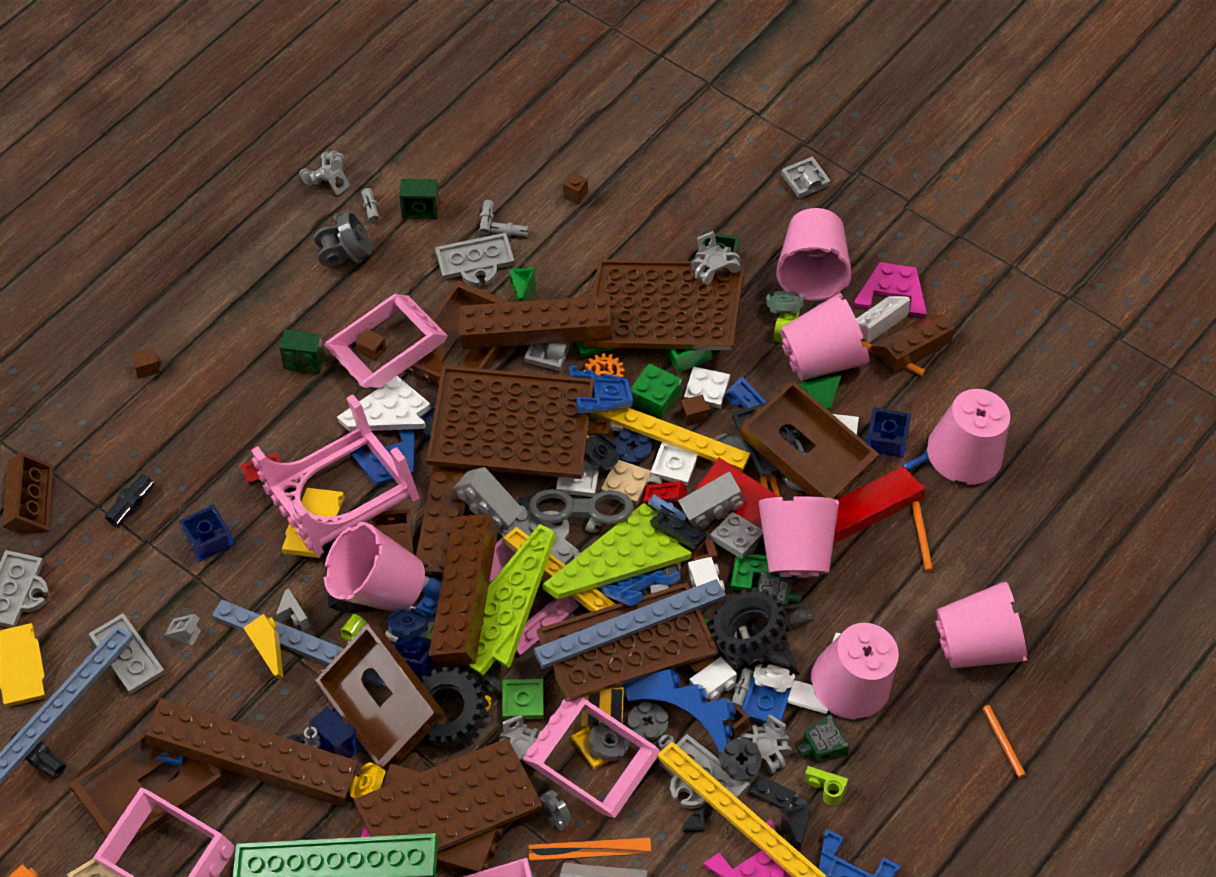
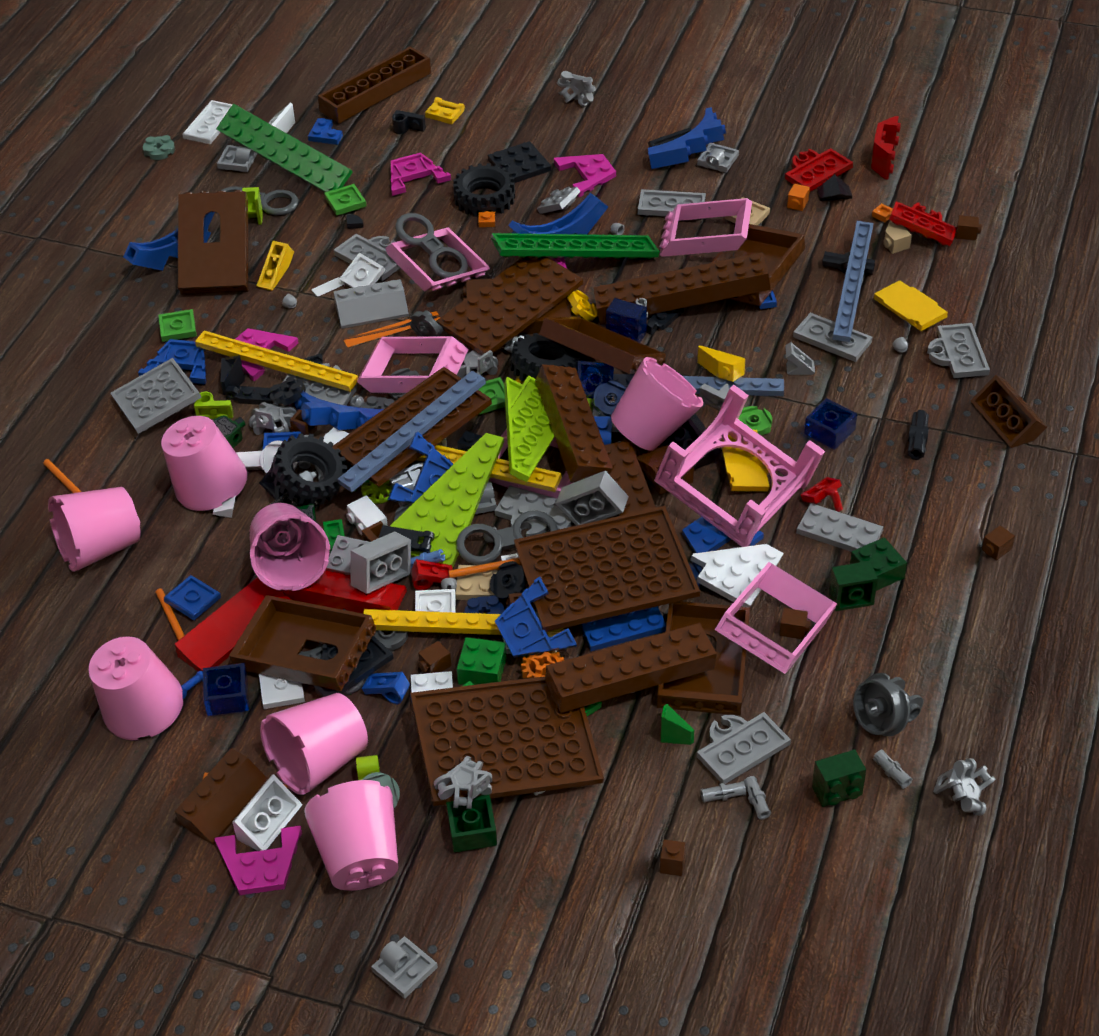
camera: 160 degrees right, 10 degrees down
(66, 618) = (900, 345): none -> light grey hinge
(263, 373) = (886, 561): none -> dark green brick
(270, 427) = (837, 528): none -> light grey plate
(274, 582) = (762, 419): none -> bright green plate
(616, 480) = (479, 568): none -> orange bar
(887, 813) = (155, 395): none -> light grey plate
(898, 547) = (192, 597): none -> blue plate

